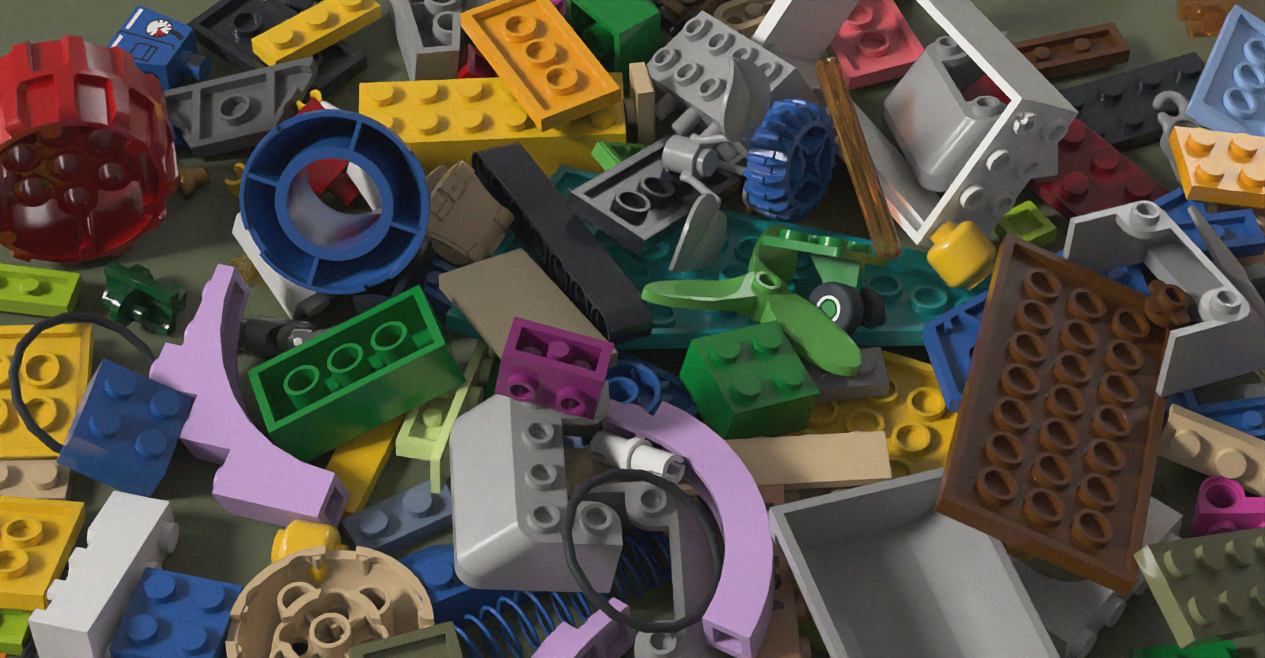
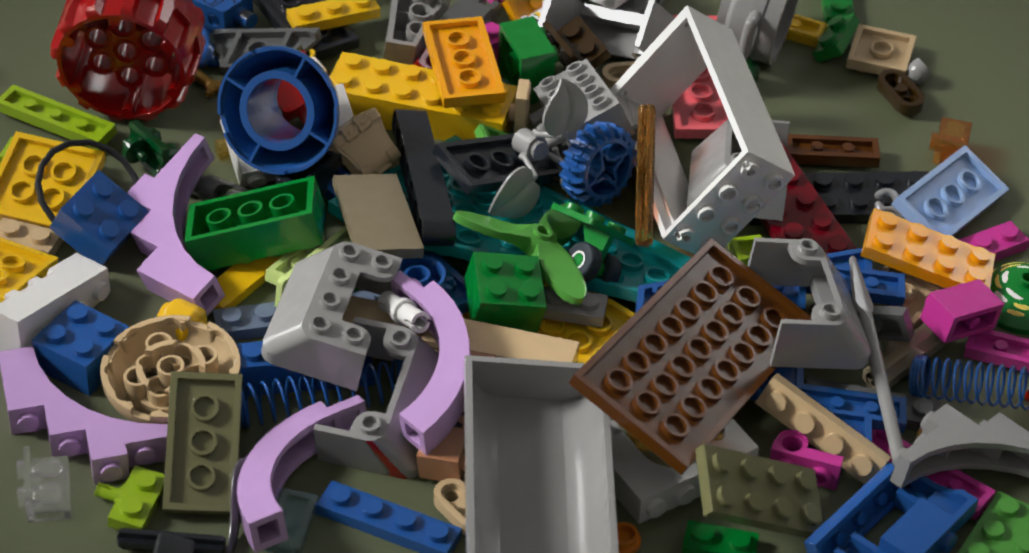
camera: 15 degrees right, 5 degrees down
(553, 368) = (361, 235): magenta brick -> none
(584, 584) = (327, 367): black piece -> none
(961, 254) = (683, 246): yellow head -> none
(1167, 305) = (802, 308): reddish brown plate -> none

